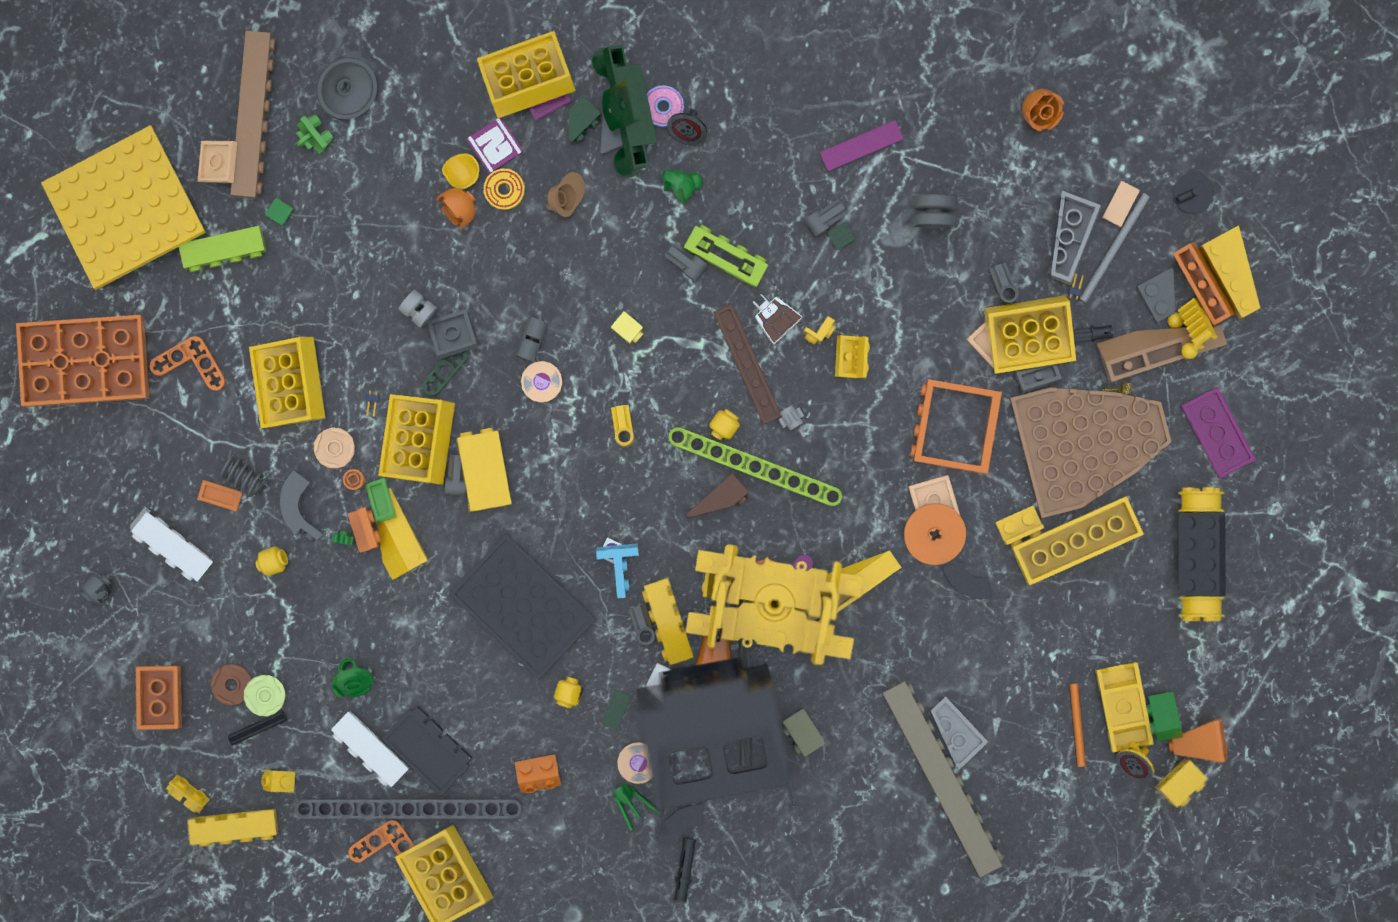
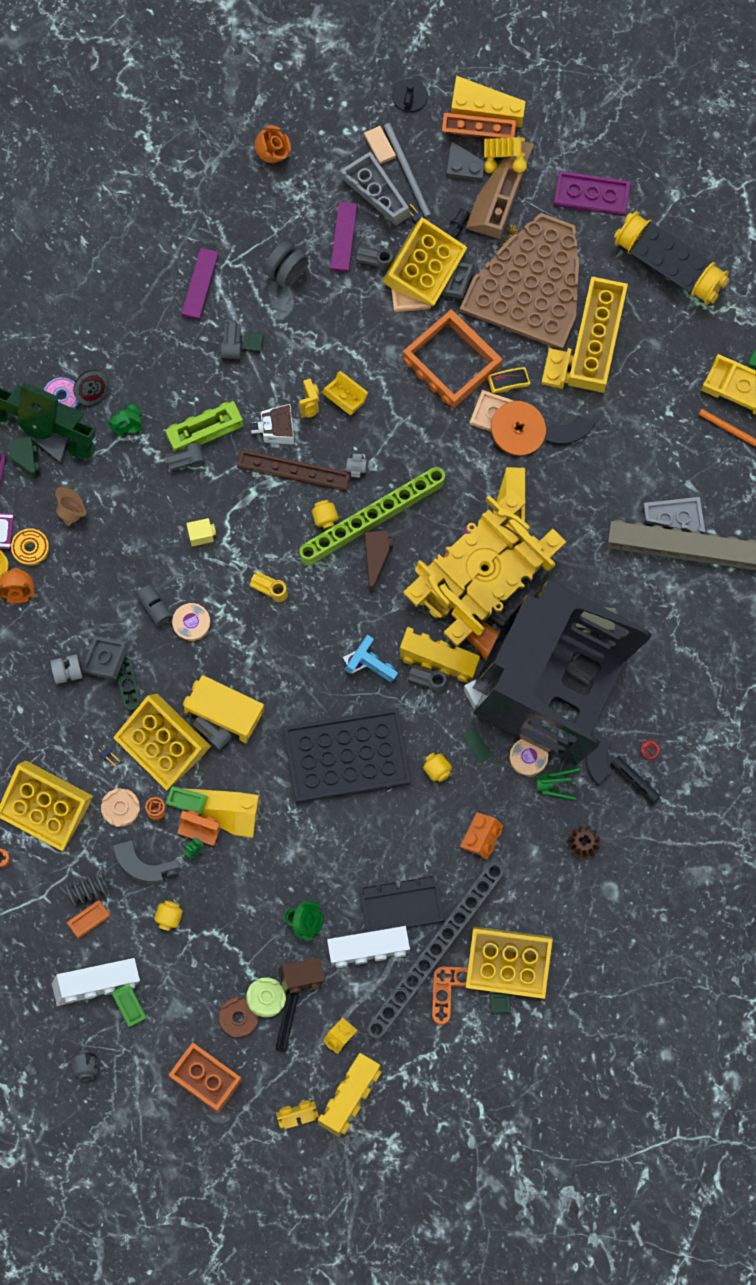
camera: 55 degrees left, 15 degrees down
(171, 587) = (128, 1005): none -> bright green tile
(303, 712) = (302, 975): none -> reddish brown brick
(404, 894) = (500, 1003): none -> dark green tile
(599, 859) = (576, 841): none -> reddish brown gear
(722, 862) = (650, 750): none -> clear red tile
(974, 491) = (508, 379): none -> slope
(1004, 240) = (343, 237): none -> magenta tile

